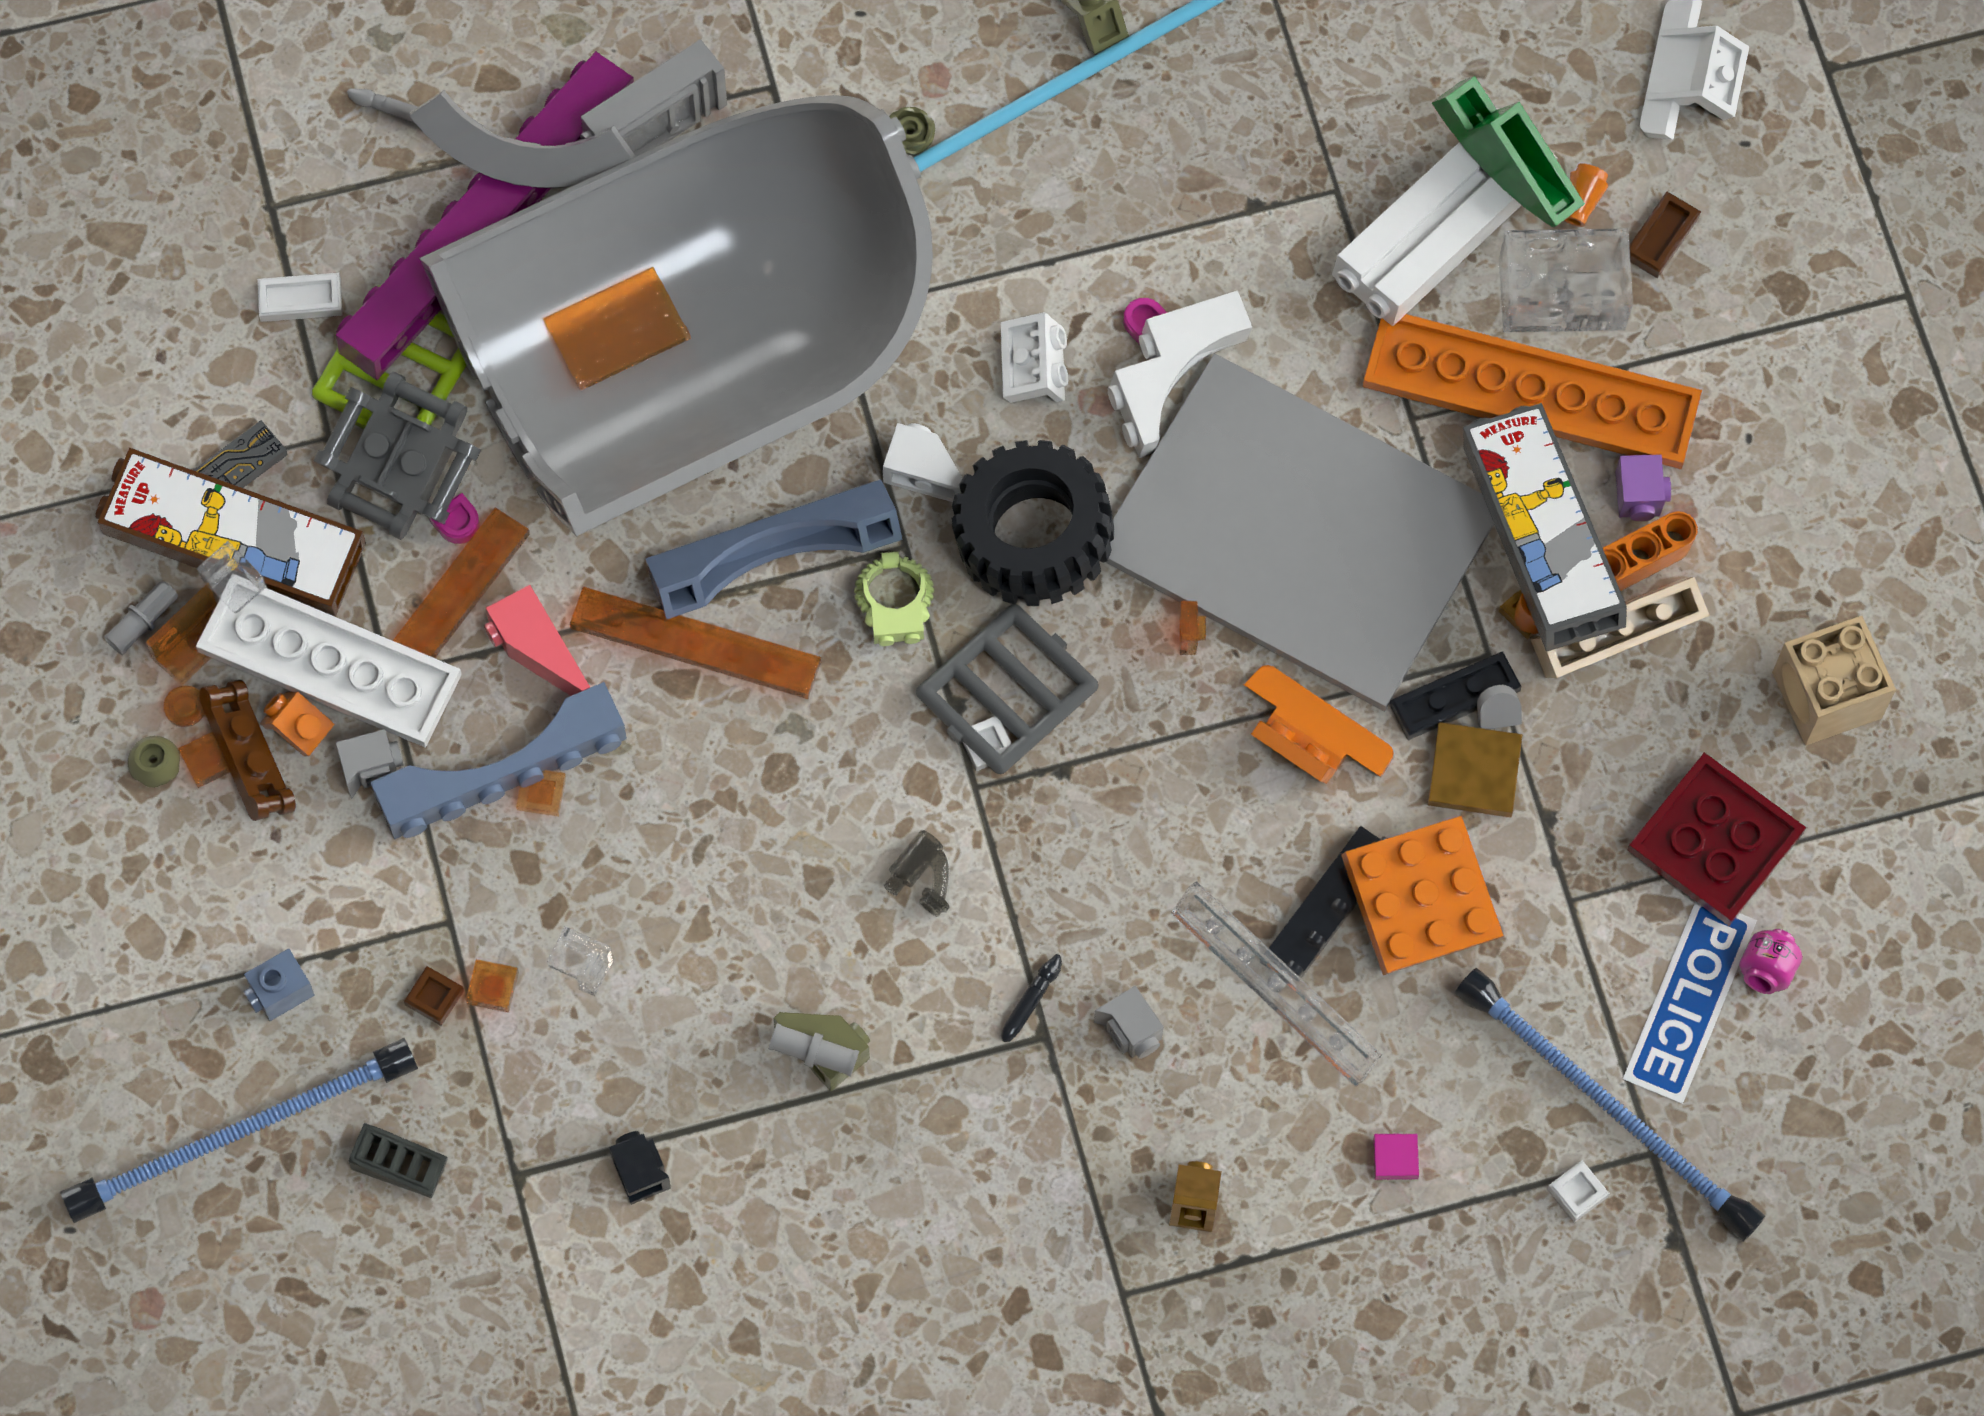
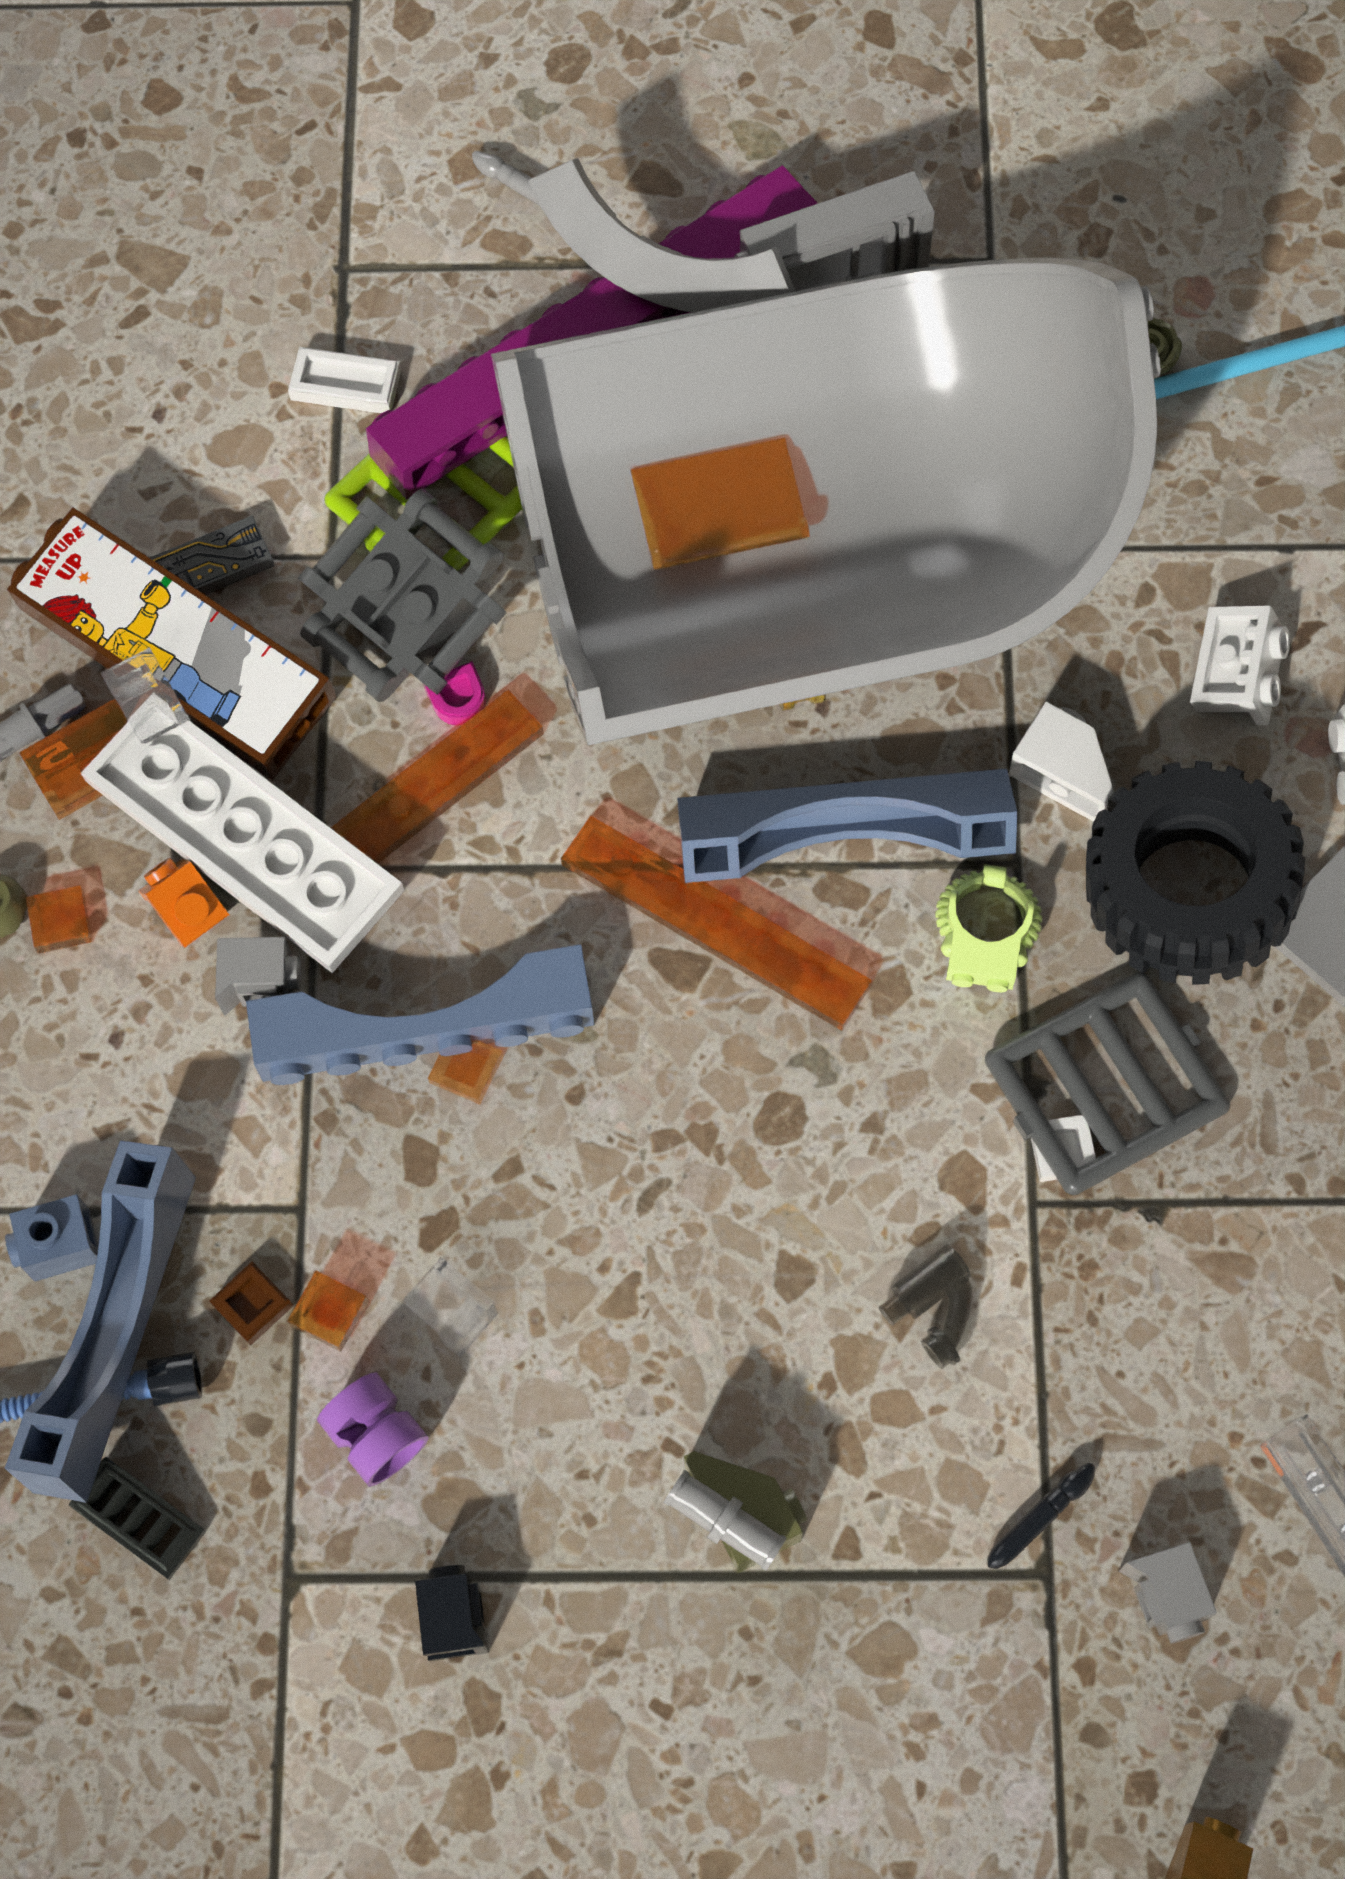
camera: 20 degrees right, 0 degrees up
(183, 706) = (51, 846): clear orange plate -> none
(246, 750) = (108, 921): reddish brown plate -> none
(338, 1088) = (73, 1417): none -> sand blue arch
(533, 641) = (506, 867): coral slope -> none
(555, 1069) = (370, 1426): none -> medium lavender wheel

